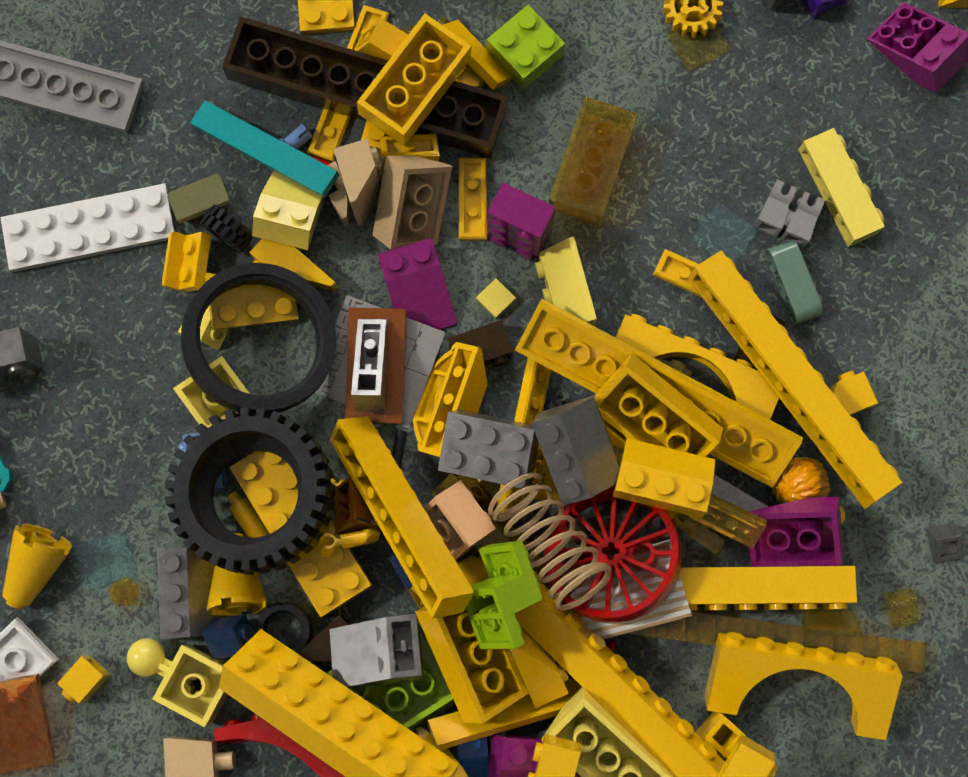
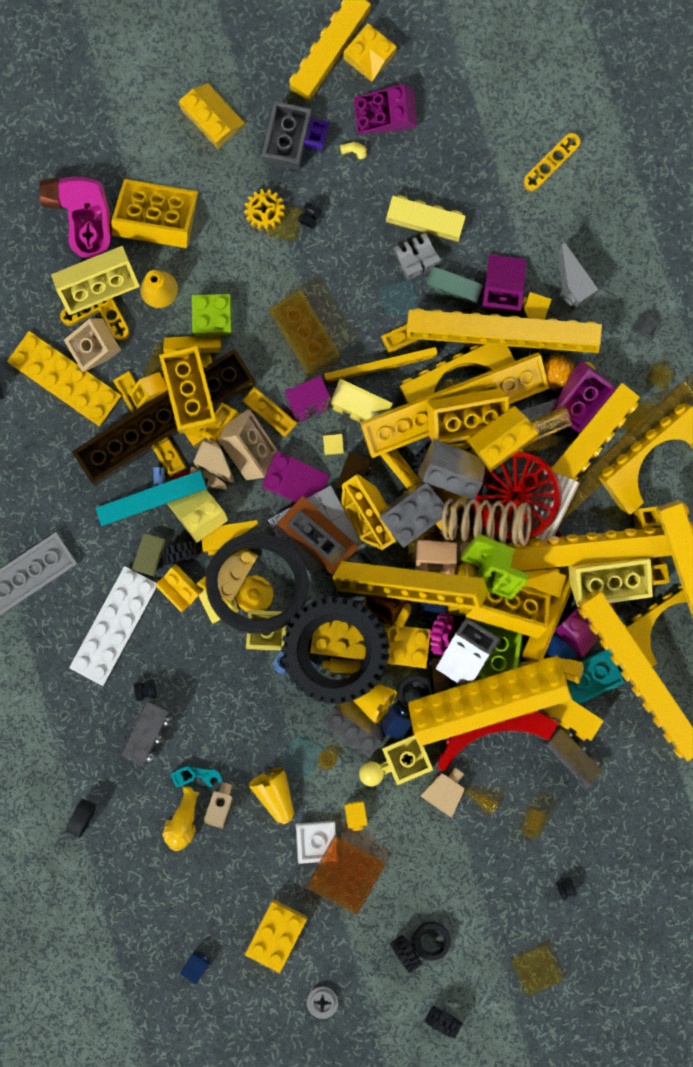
camera: 55 degrees left, 5 degrees up
(41, 320) = (145, 690): none -> black wheel
(252, 360) = (260, 594): none -> yellow tile
(377, 601) = (442, 633): none -> dark pink gear
(632, 276) = (380, 365): none -> yellow tile
(730, 60) = (309, 215): none -> black wheel
(844, 336) = (504, 285): none -> magenta slope
(849, 46) = (354, 147): none -> light yellow arm
(922, 417) = (576, 283): none -> light grey slope

